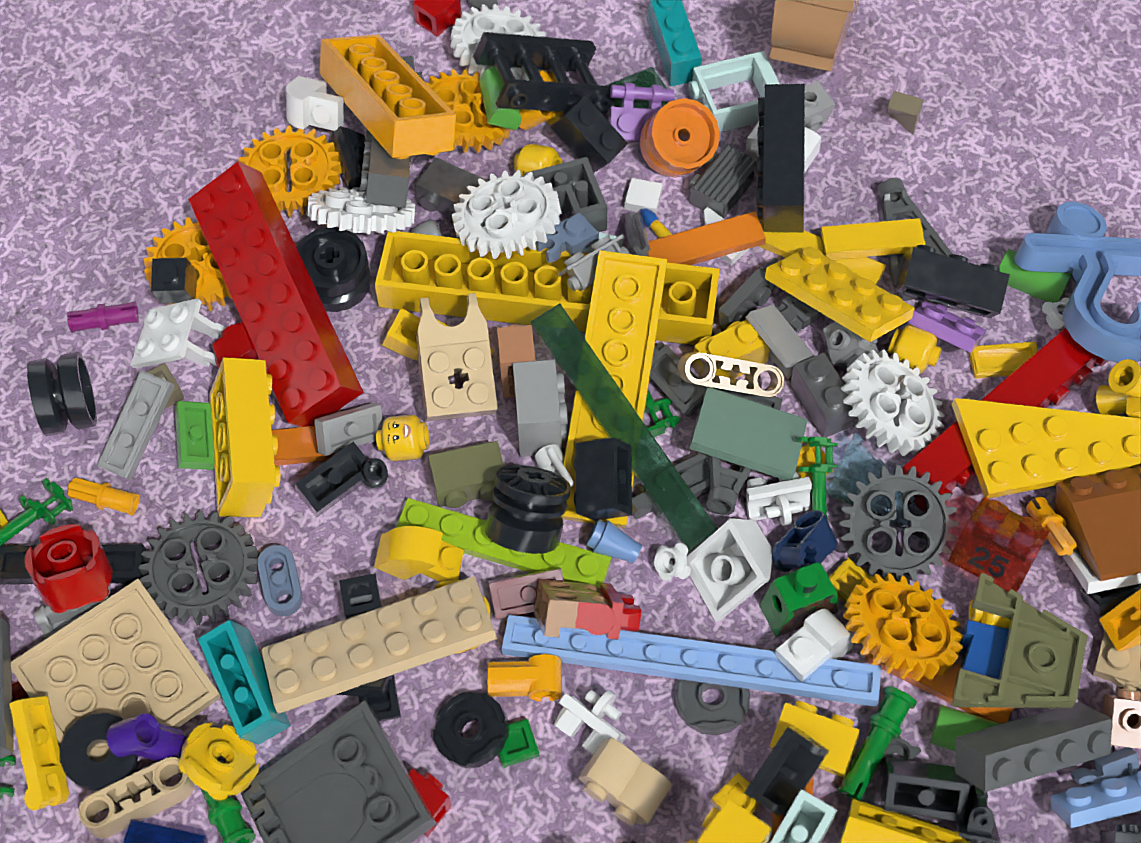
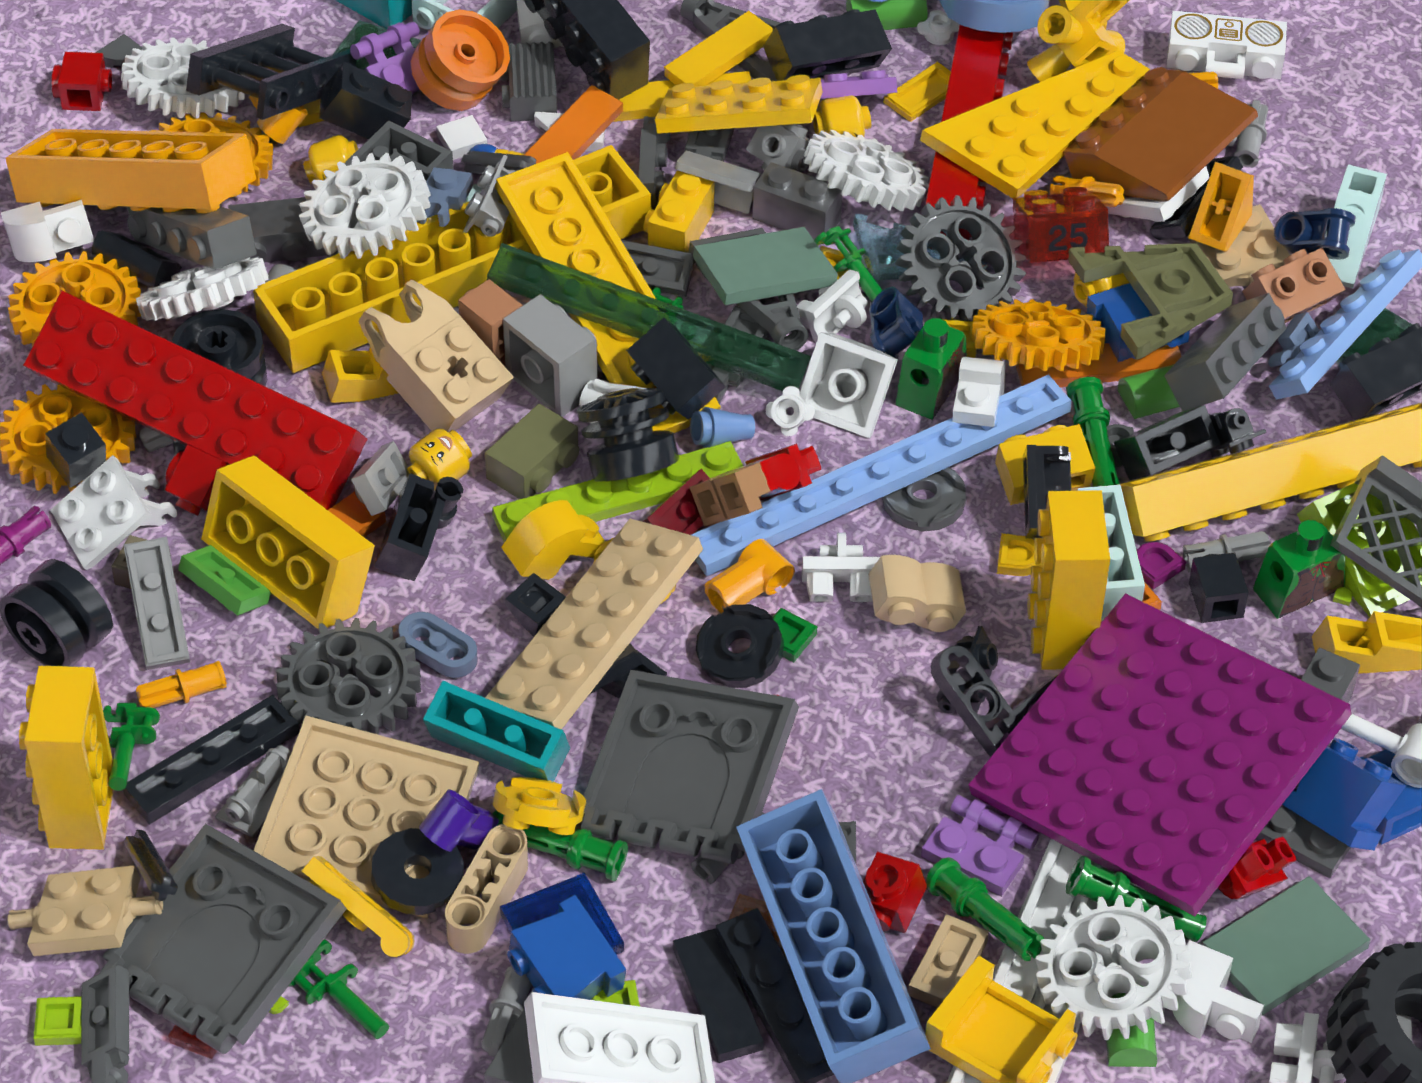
camera: 40 degrees left, 10 degrees down
(69, 568) = (237, 737): red brick -> none
(491, 86) = (238, 115): bright green brick -> none
(748, 385) = (688, 221): beam -> none

